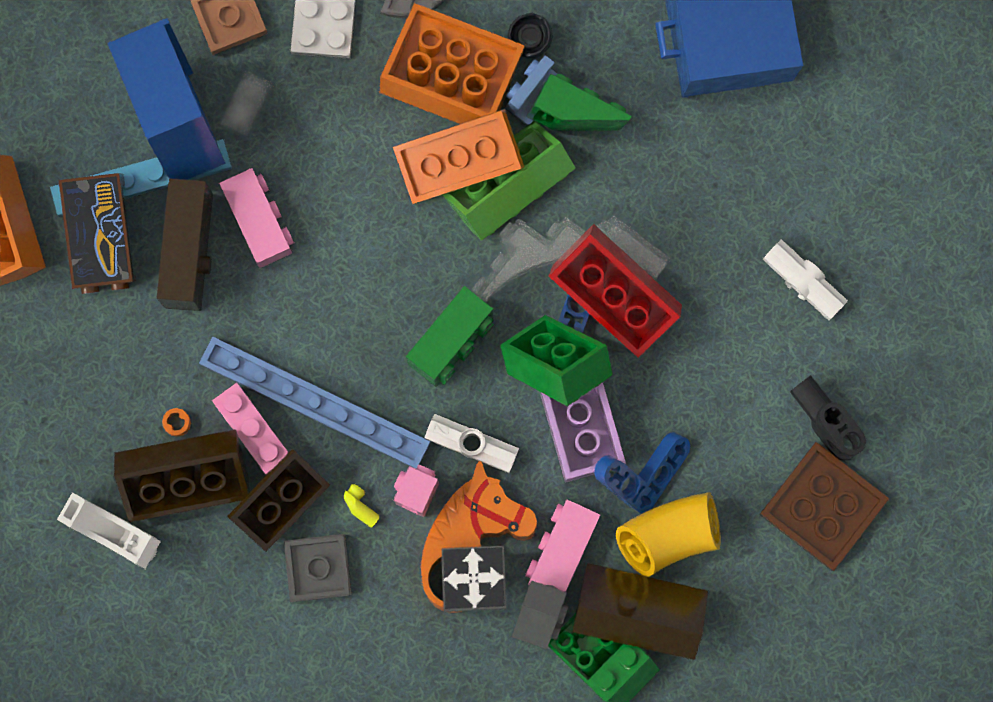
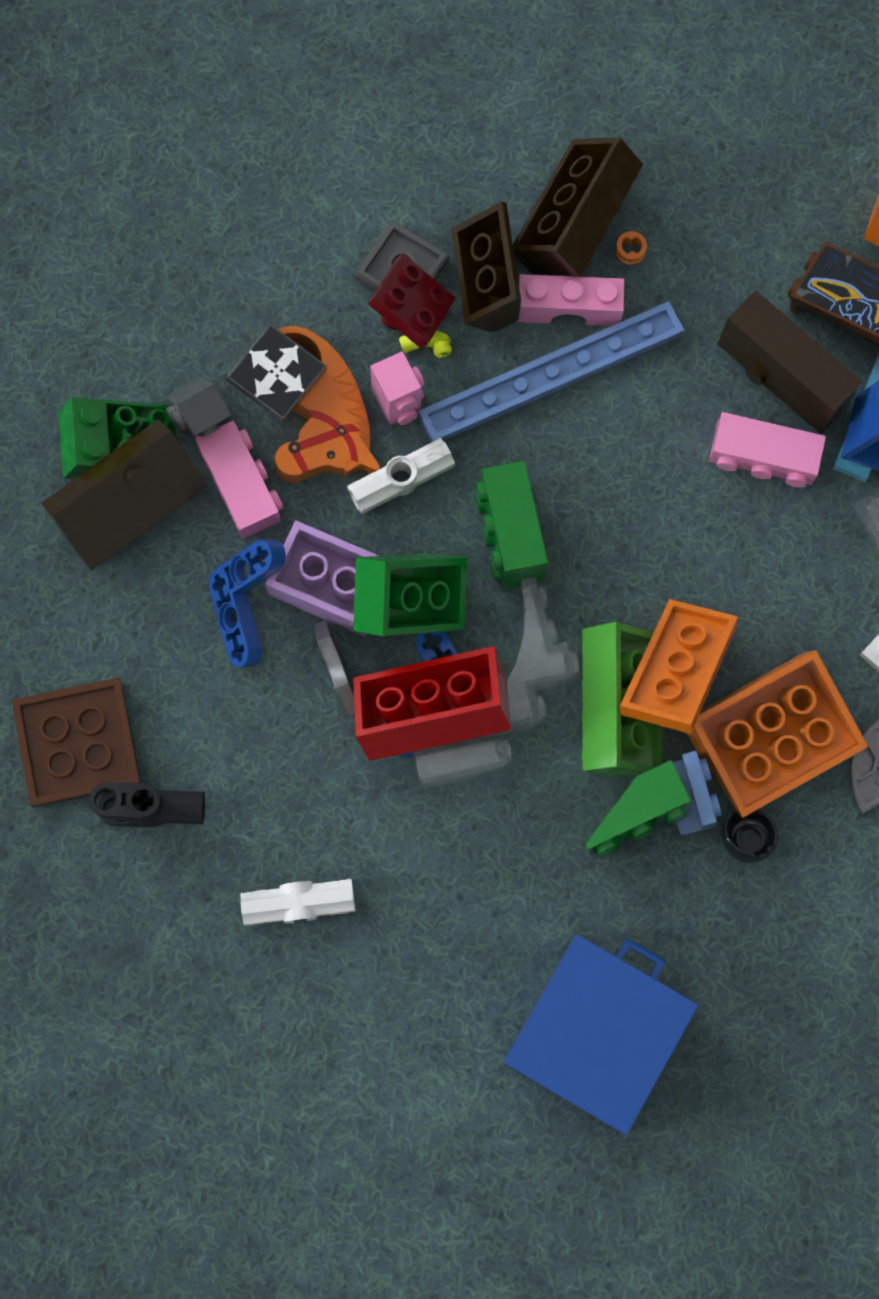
camera: 125 degrees right, 5 degrees down
(109, 530) = (592, 117): white arch -> none
(344, 531) = (411, 301): none -> dark red plate
(636, 379) = (336, 666): none -> flat silver tile
(670, 533) = (168, 583): yellow brick -> none

